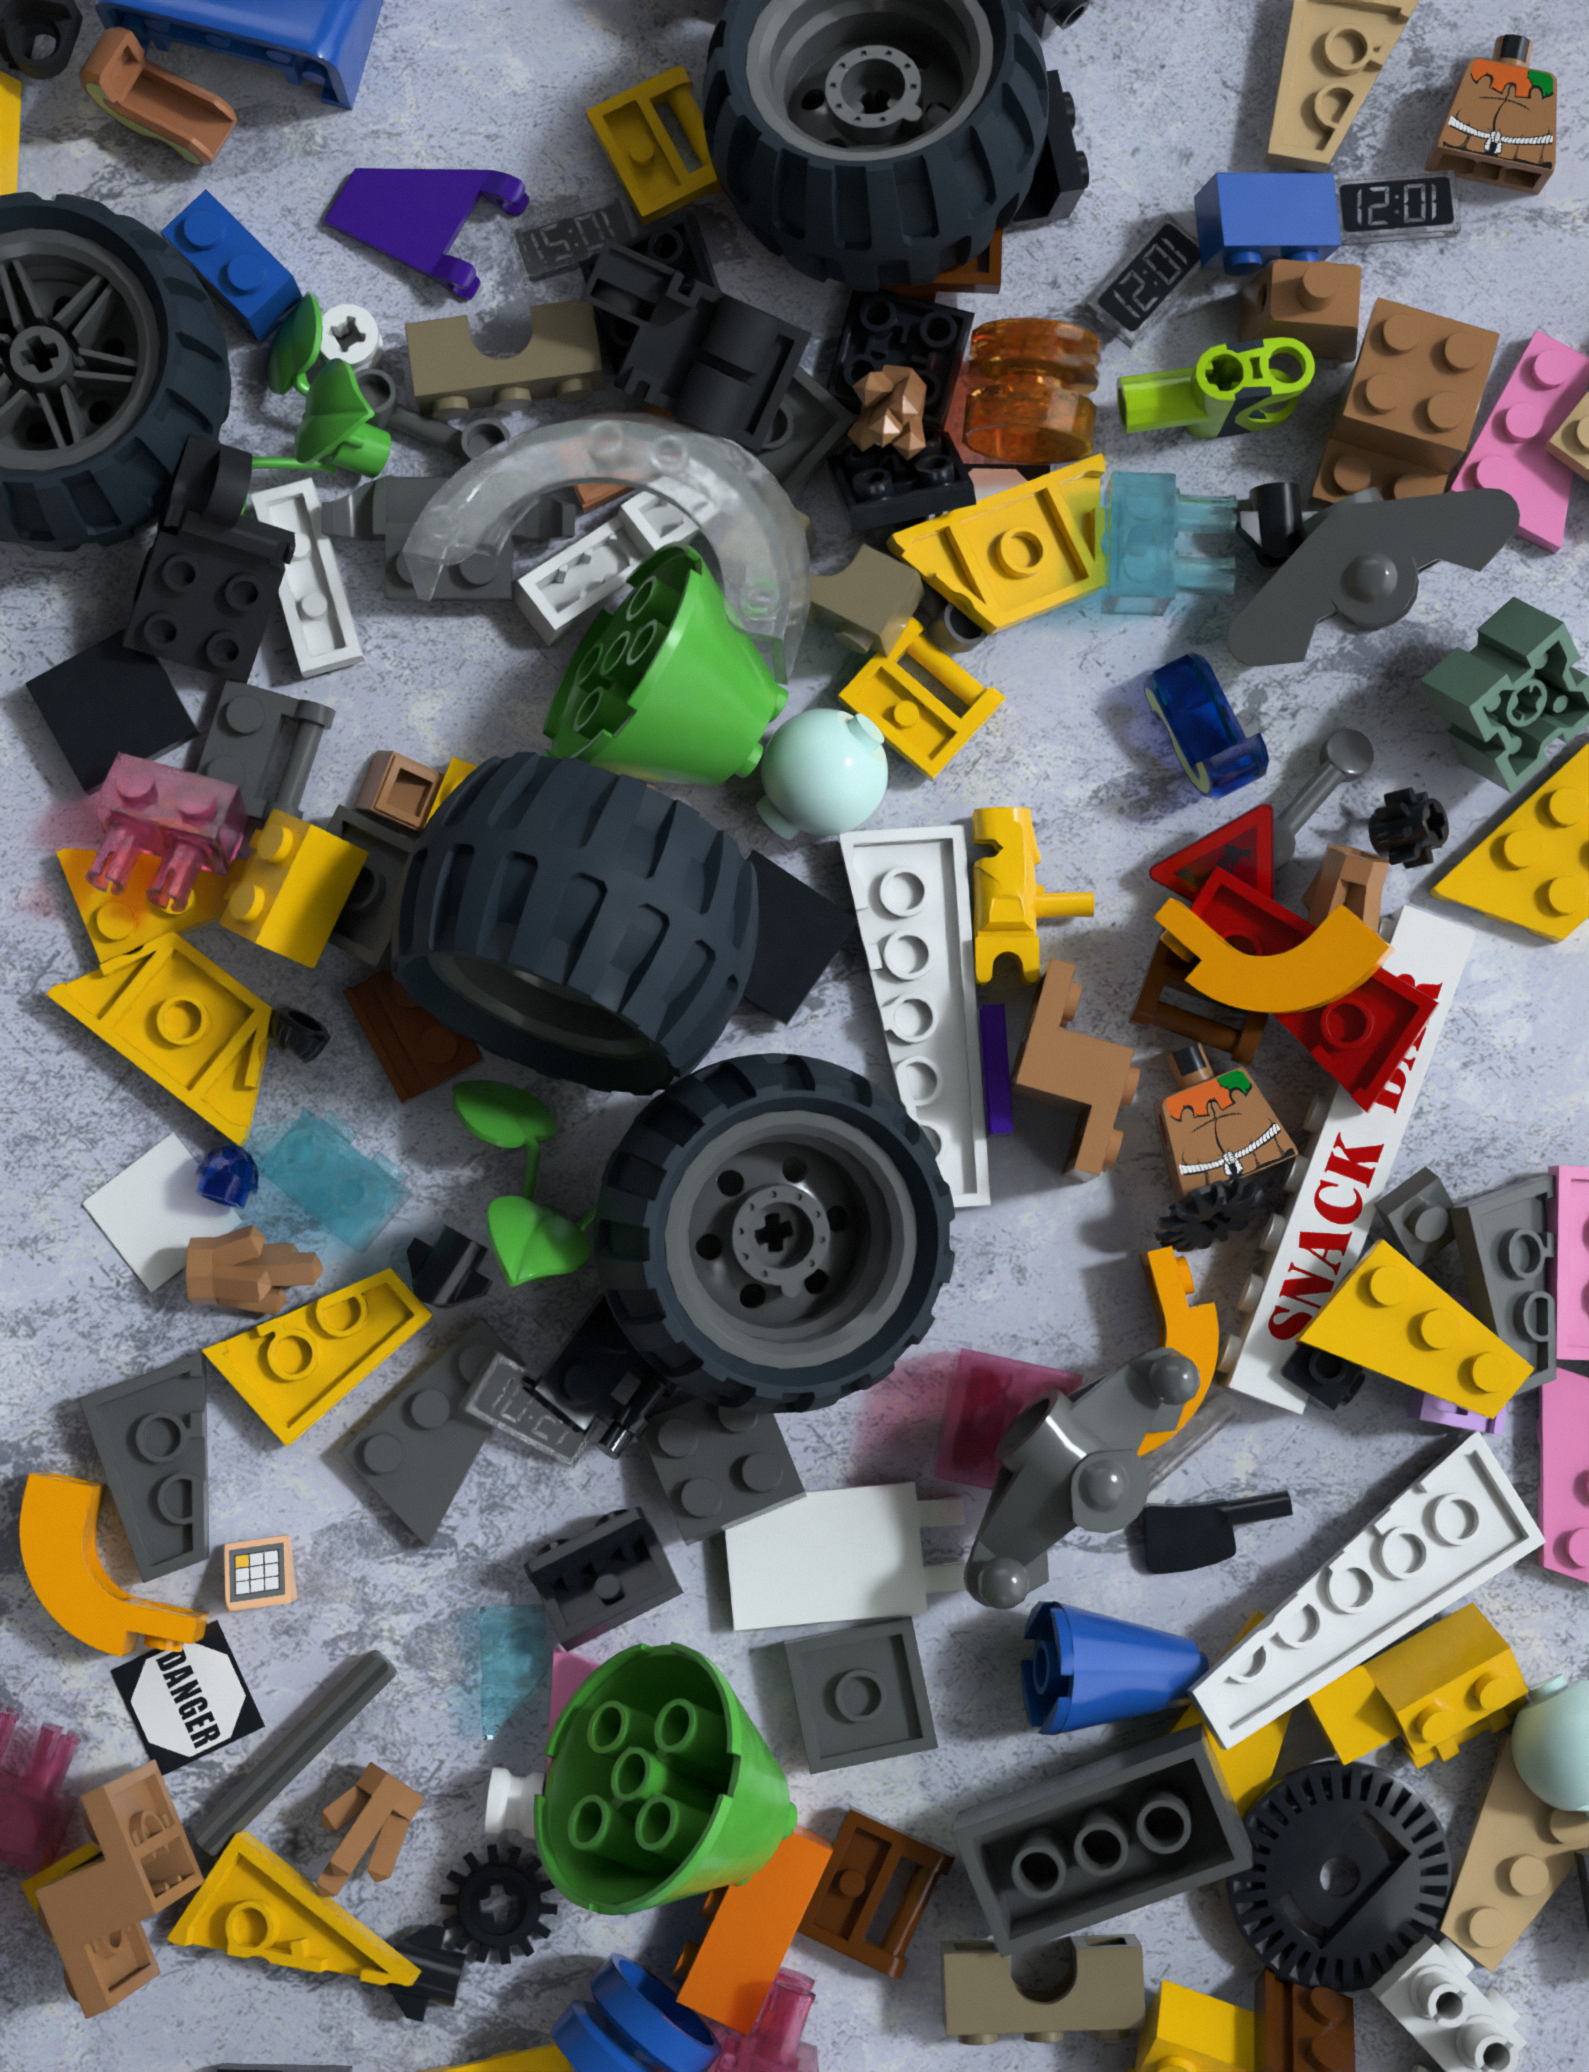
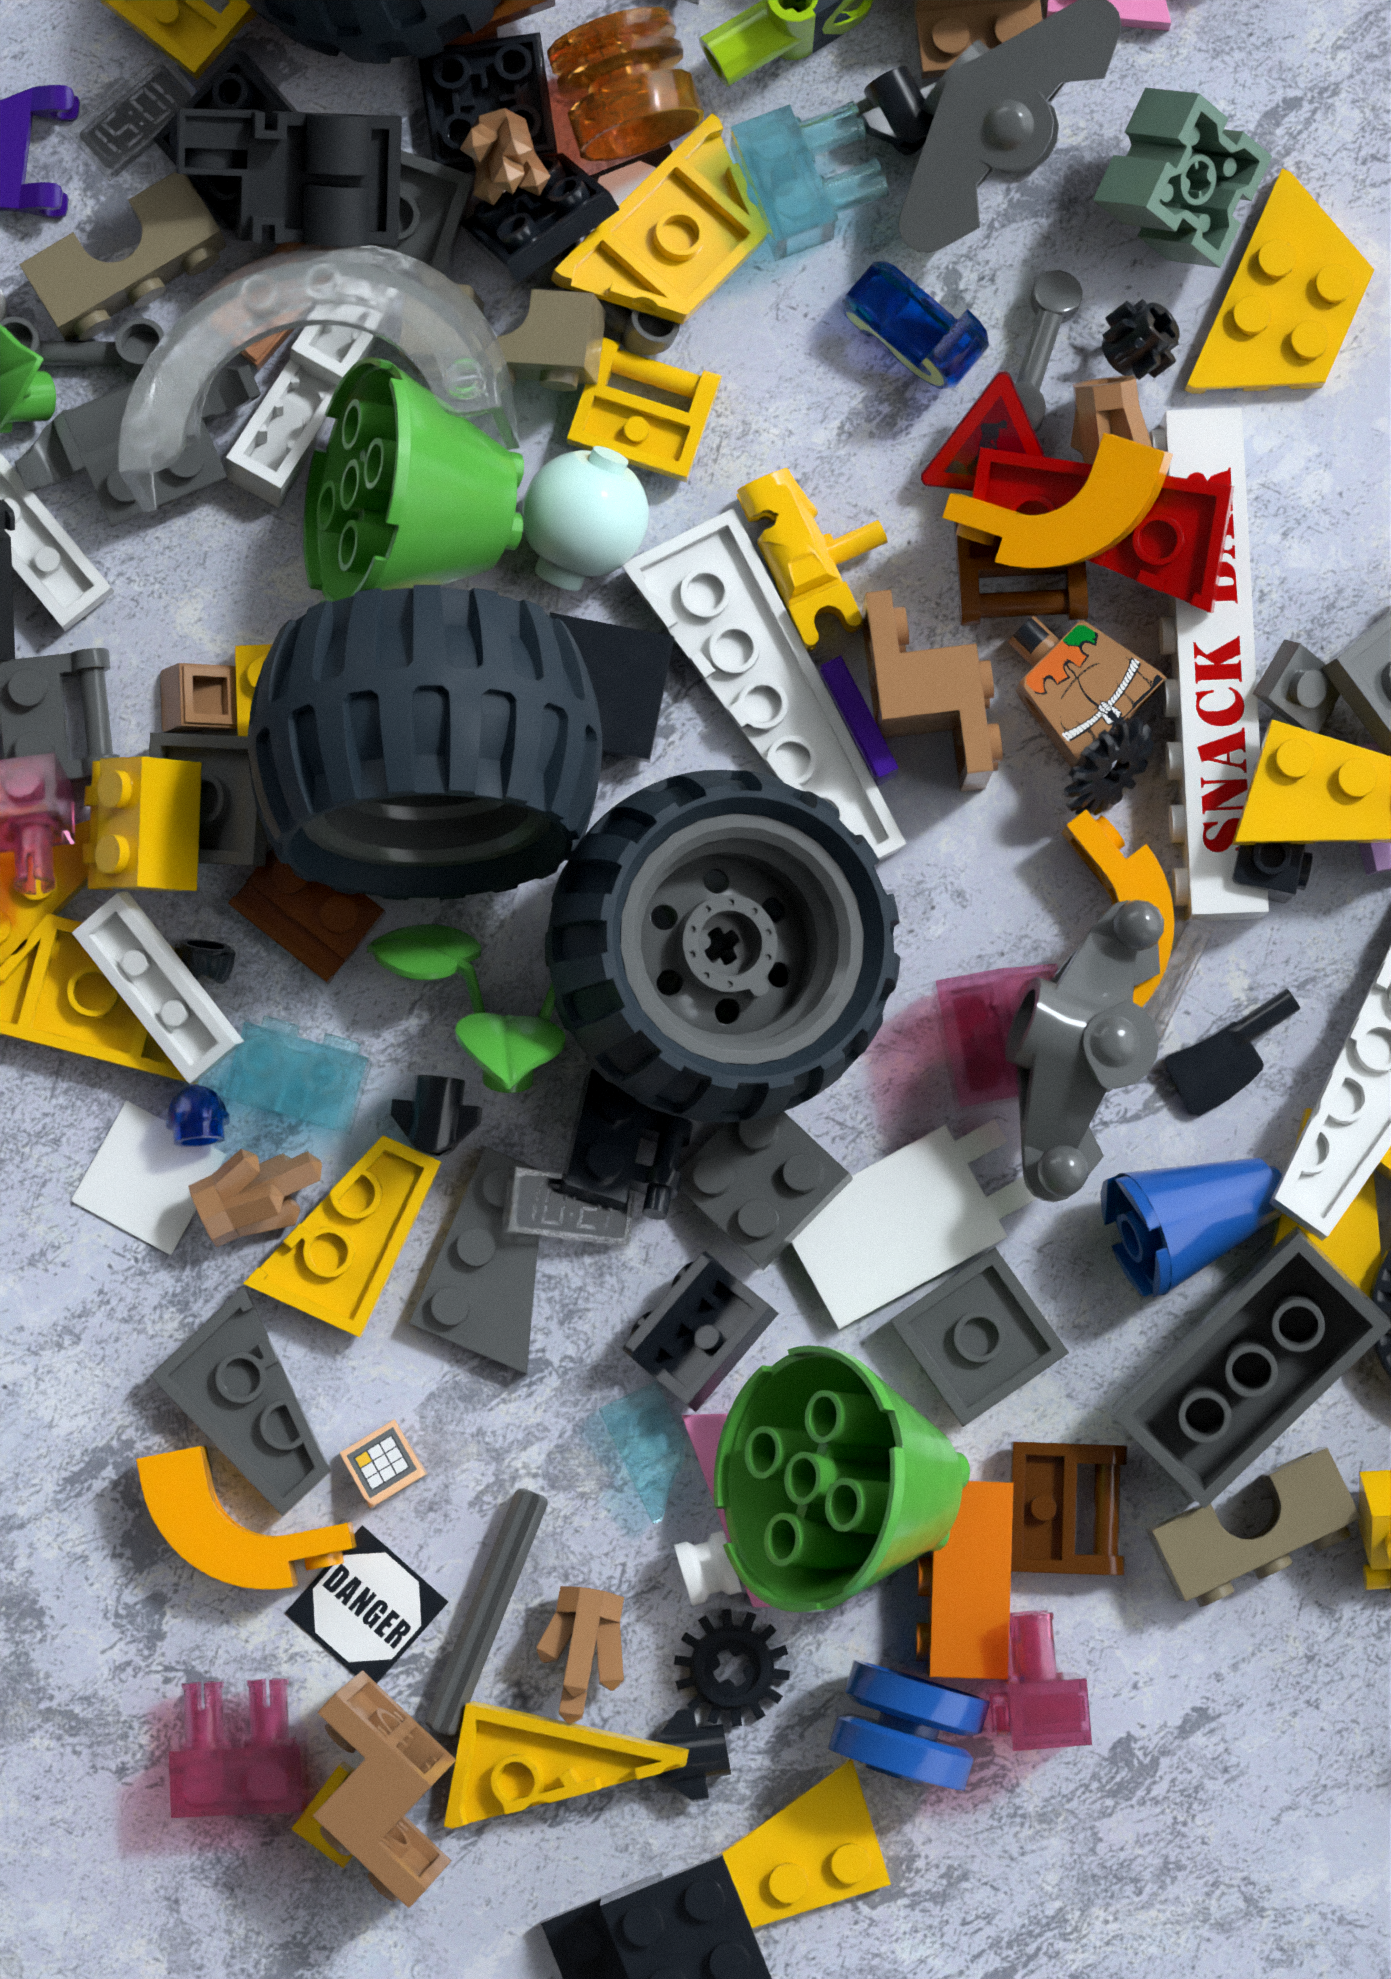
camera: 20 degrees left, 0 degrees up
(240, 1042) = (158, 987): none -> white plate

